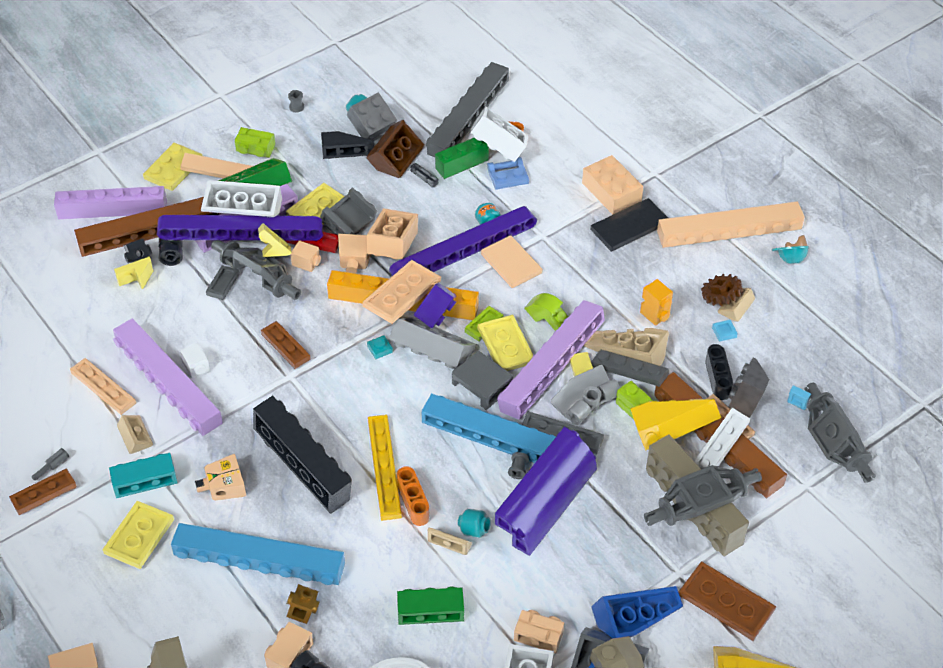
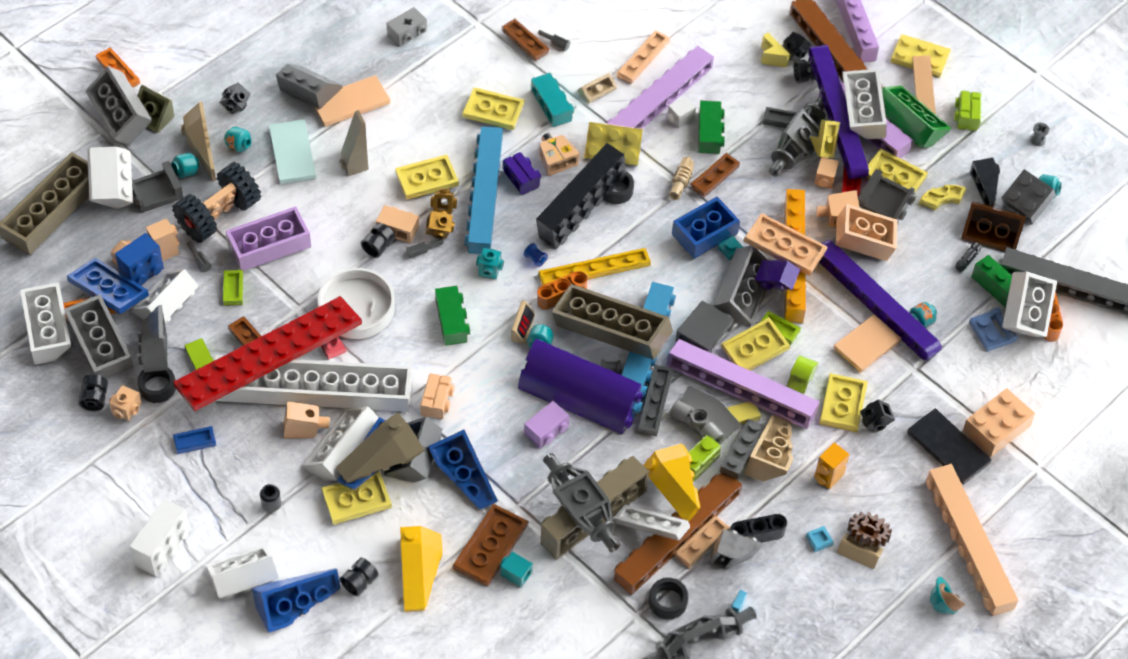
camera: 80 degrees right, 5 degrees up
(222, 339) = (710, 127): none -> green brick
(223, 613) = (426, 176): none -> light yellow plate
(226, 422) = (620, 137): none -> light yellow plate
(243, 515) = (521, 173): none -> dark purple brick
(271, 595) = (443, 194): none -> pearl gold brick
(283, 373) = (681, 178): none -> tan hinge
(326, 629) = (421, 248): none -> dark grey axle
(347, 178) = (942, 195): none -> light yellow tile
(357, 358) = (705, 227): none -> blue brick
(360, 515) = (535, 255): none -> clear blue bush
(366, 559) = (490, 263): none -> teal brick
(474, 447) = (612, 321): none -> dark tan brick
(574, 287) = (843, 402): none -> light yellow tile
(585, 529) = (546, 425): none -> lavender brick
(594, 260) = (877, 415): none -> black brick
(761, 576) = (516, 569): none -> teal brick
(787, 463) = (668, 584): none -> black tyre

